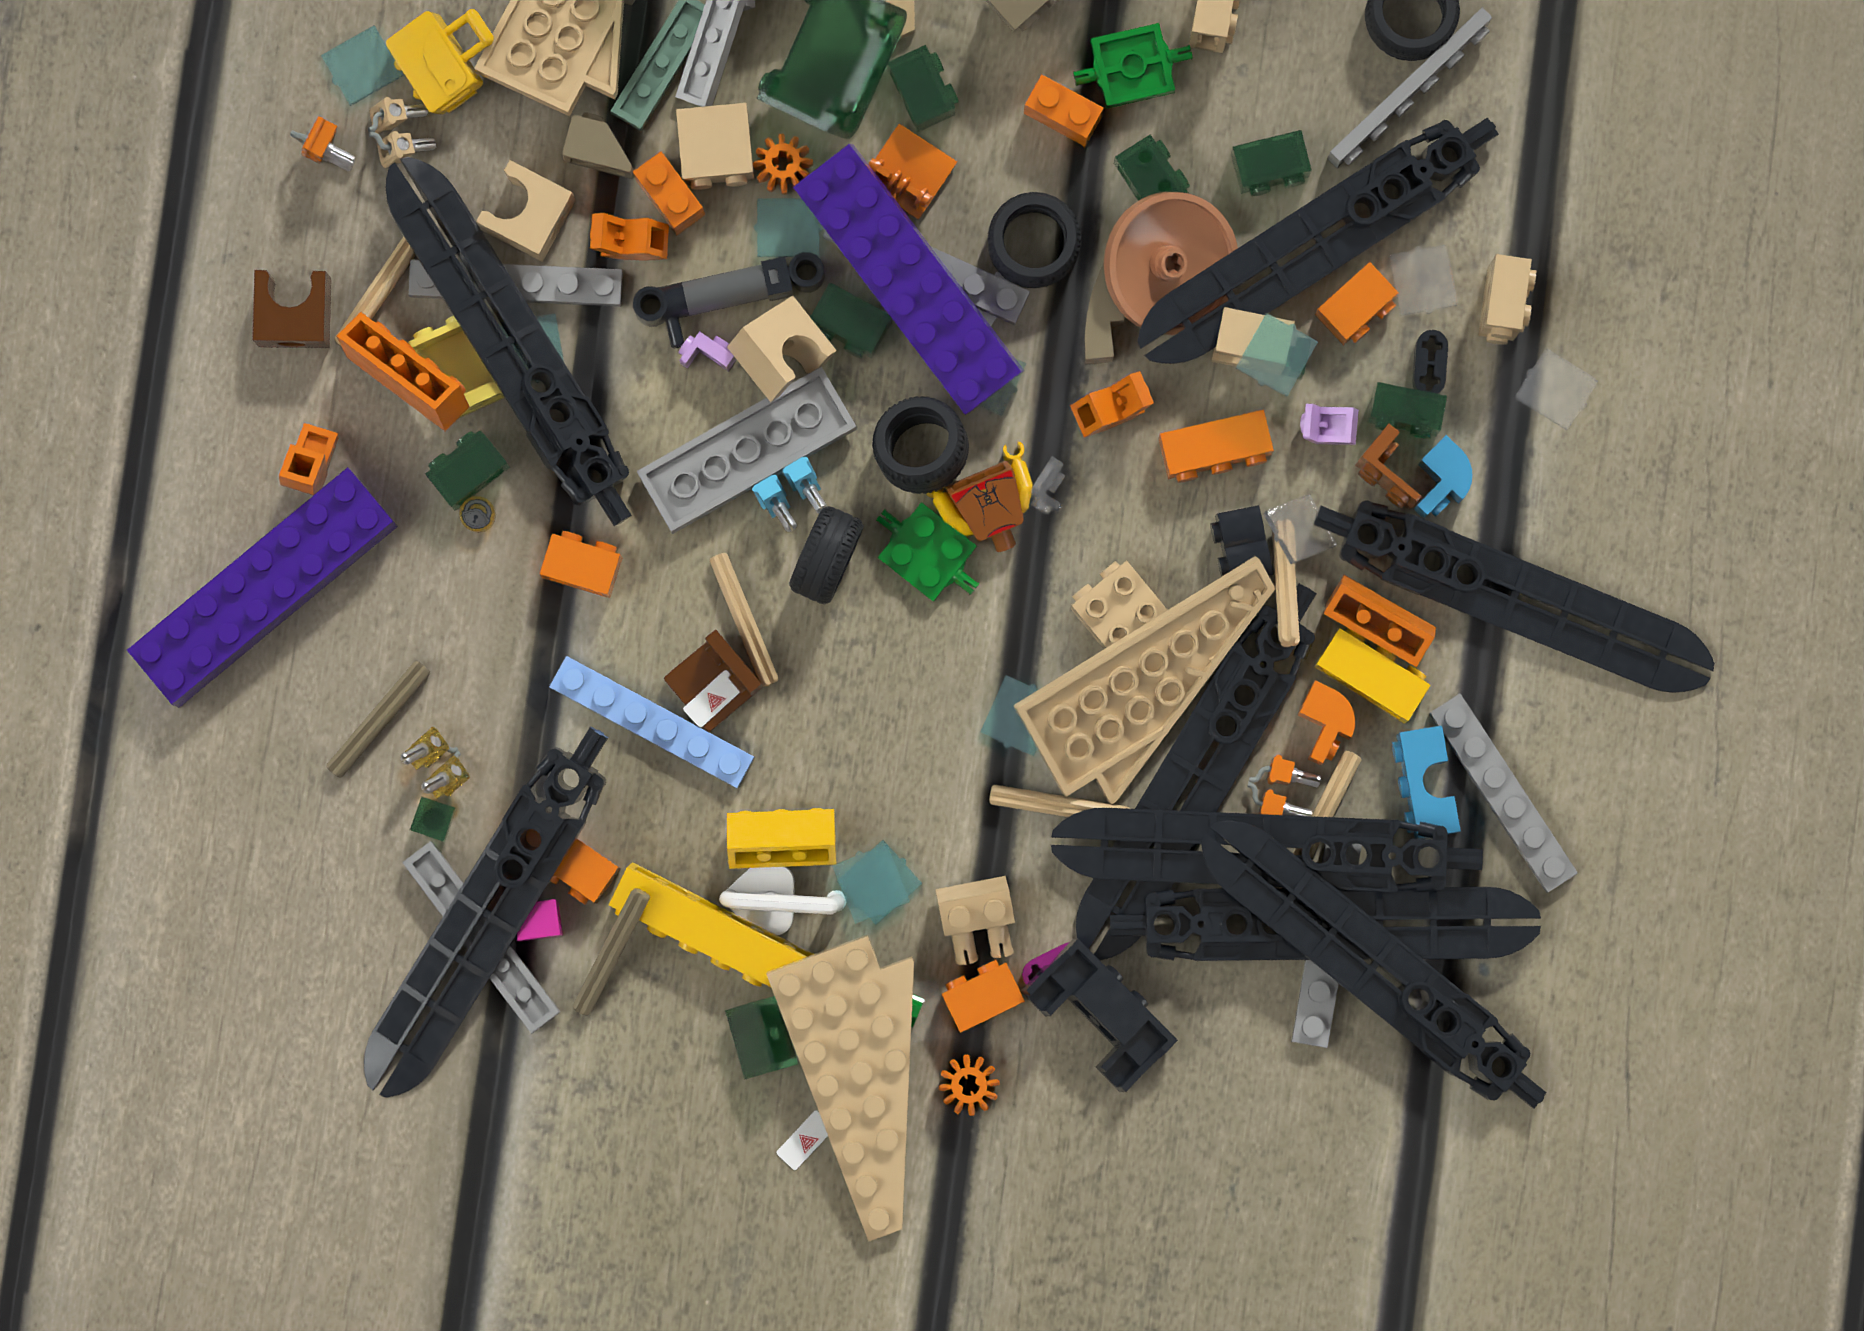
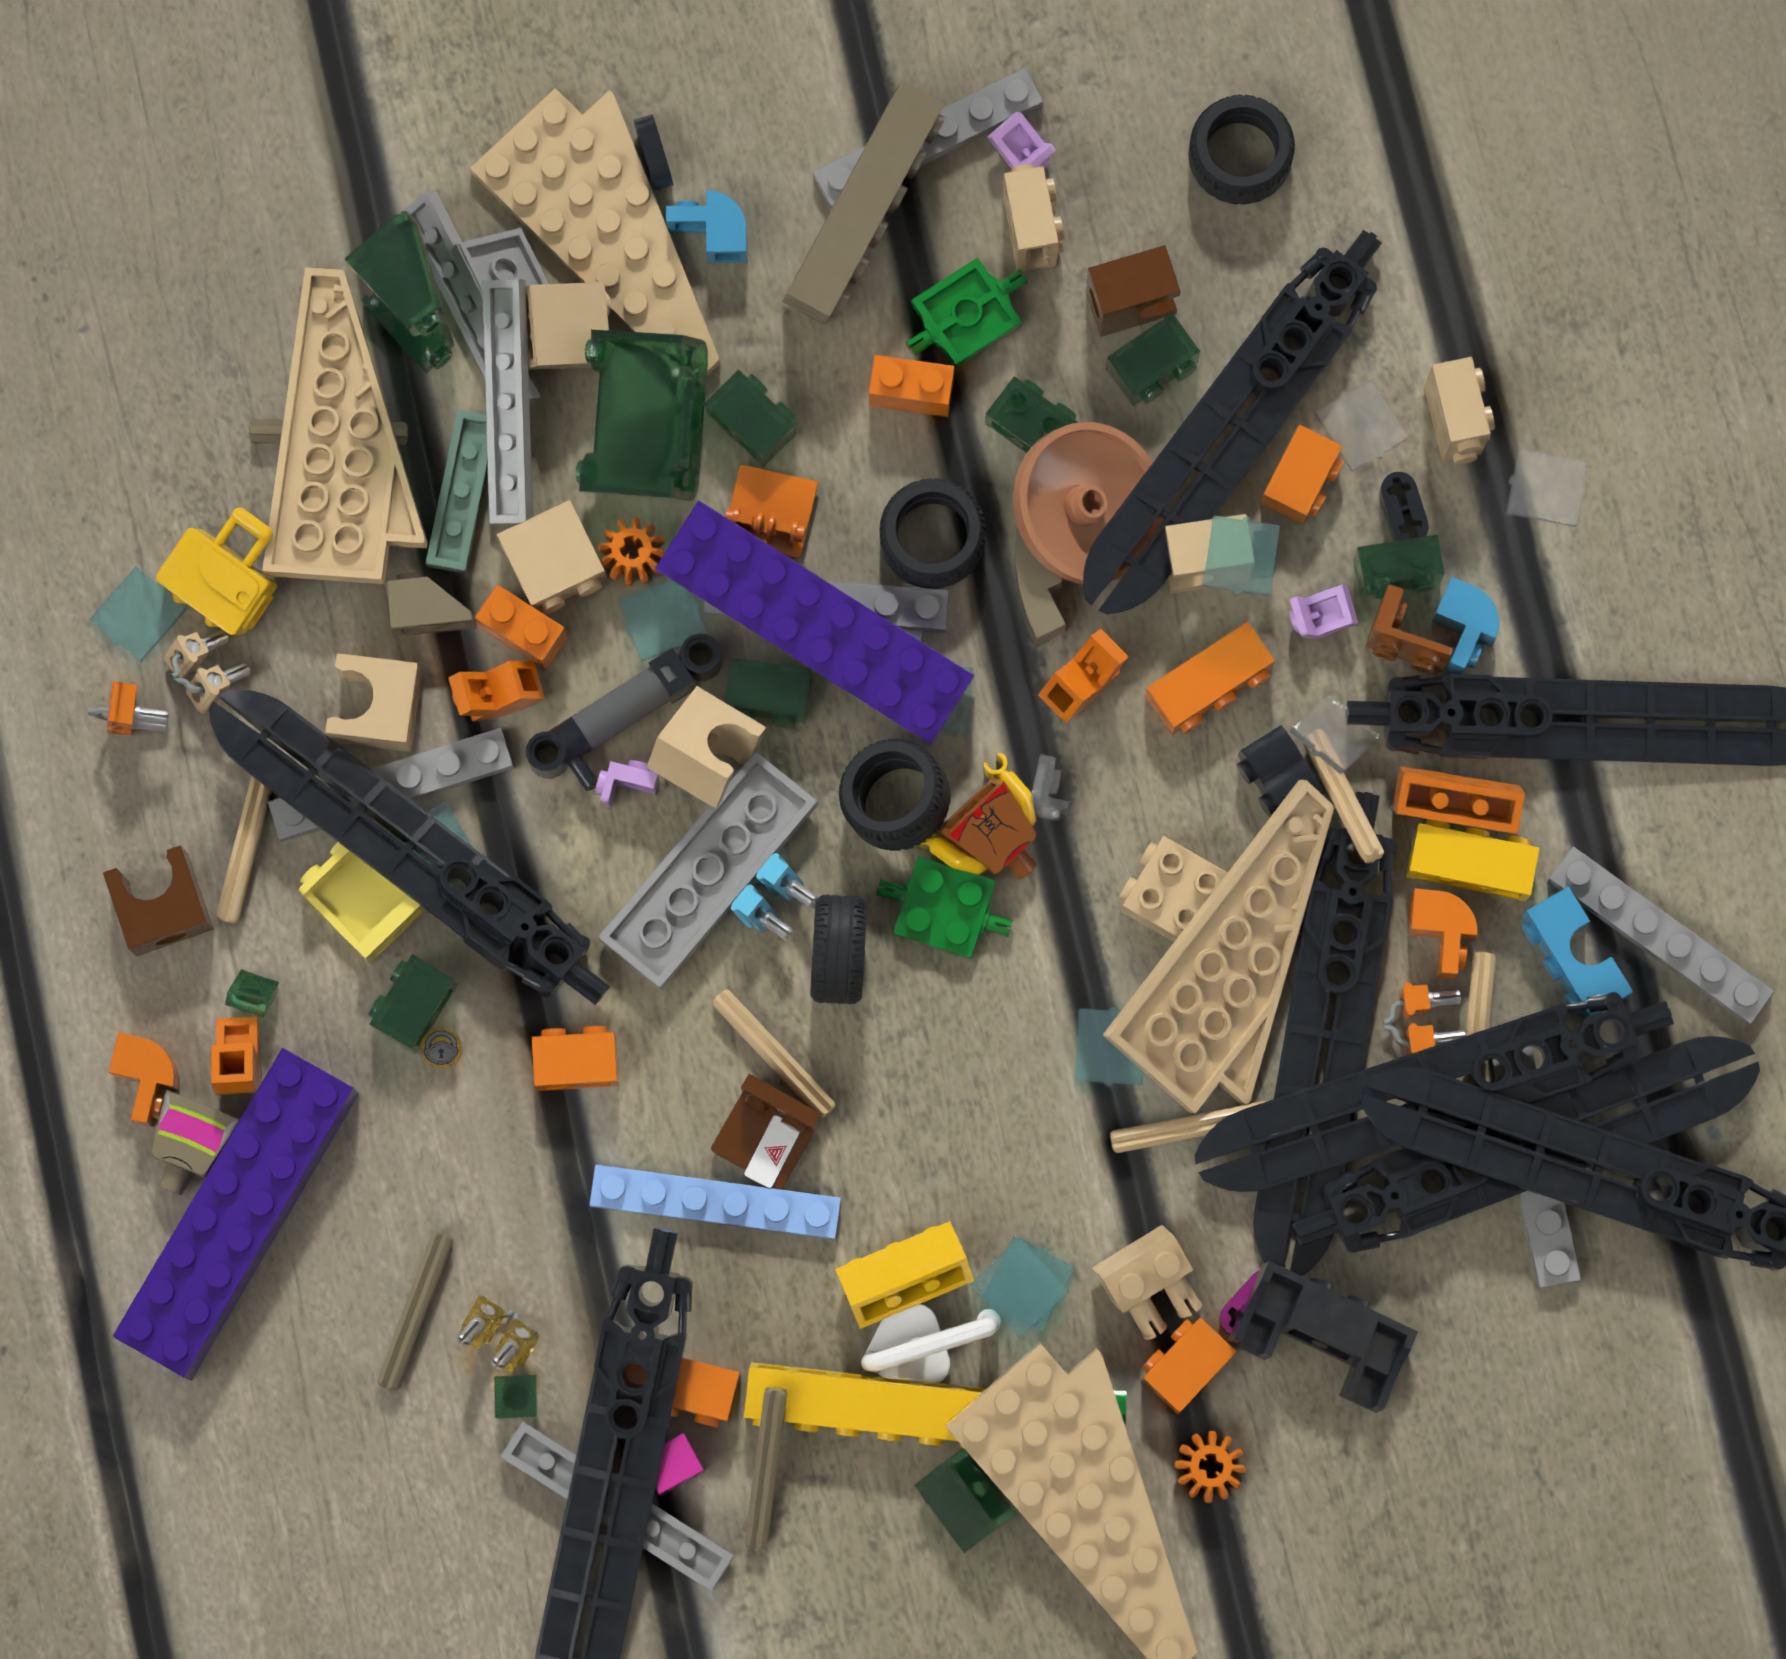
camera: 20 degrees left, 5 degrees down
(238, 447) = (151, 1066): none -> orange brick
(246, 513) = (189, 1139): none -> torso
(340, 413) = (252, 993): none -> clear green plate
(403, 371) = (305, 921): orange brick -> none
(803, 1141) = (1053, 1597): white sticker -> none
(1275, 98) = (1132, 290): none -> reddish brown piece
(1422, 79) = (1278, 215): light grey plate -> none

